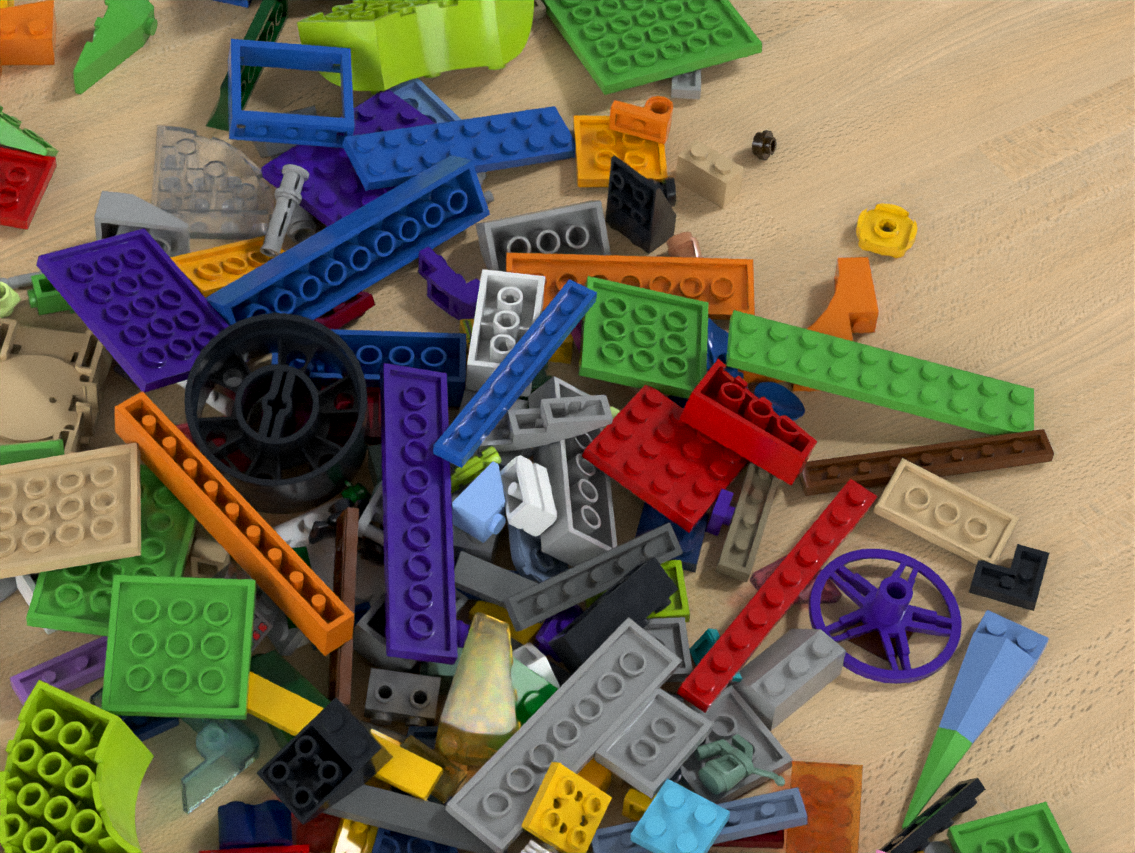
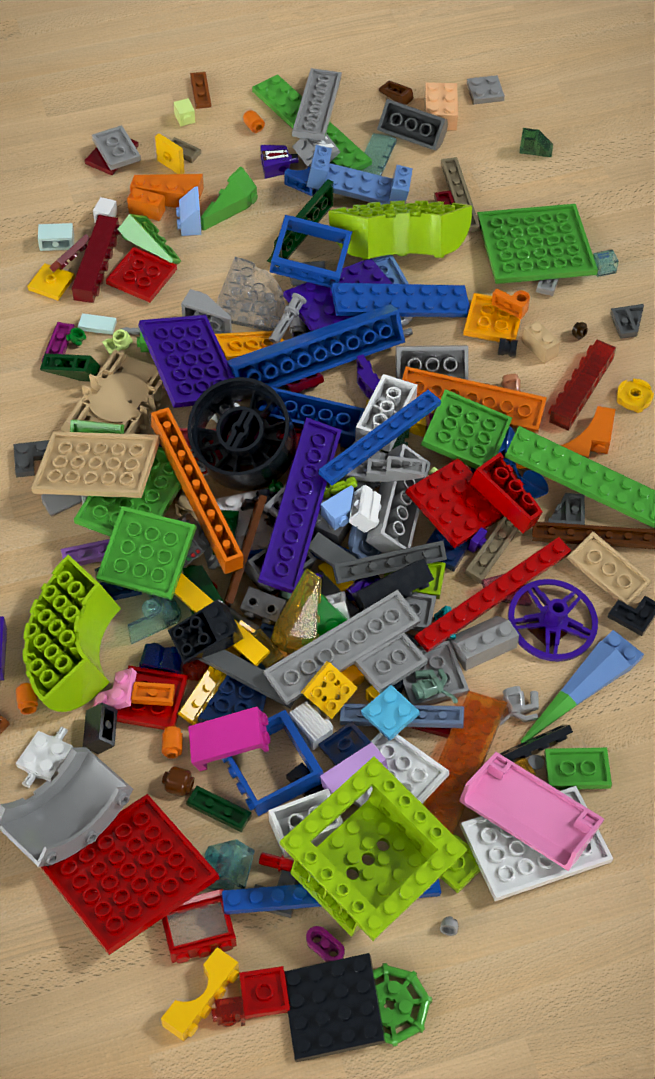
camera: 20 degrees right, 5 degrees up
(51, 68) = (189, 214): none -> light blue slope
(638, 208) = (489, 355): black slope -> none
(770, 29) = (606, 262): none -> clear light blue brick
(798, 230) = (582, 384): none -> clear red brick
(832, 115) = (627, 320): none -> dark grey wing
(850, 432) = (570, 510): none -> dark grey wing
(877, 767) = (516, 704): none -> light grey piece

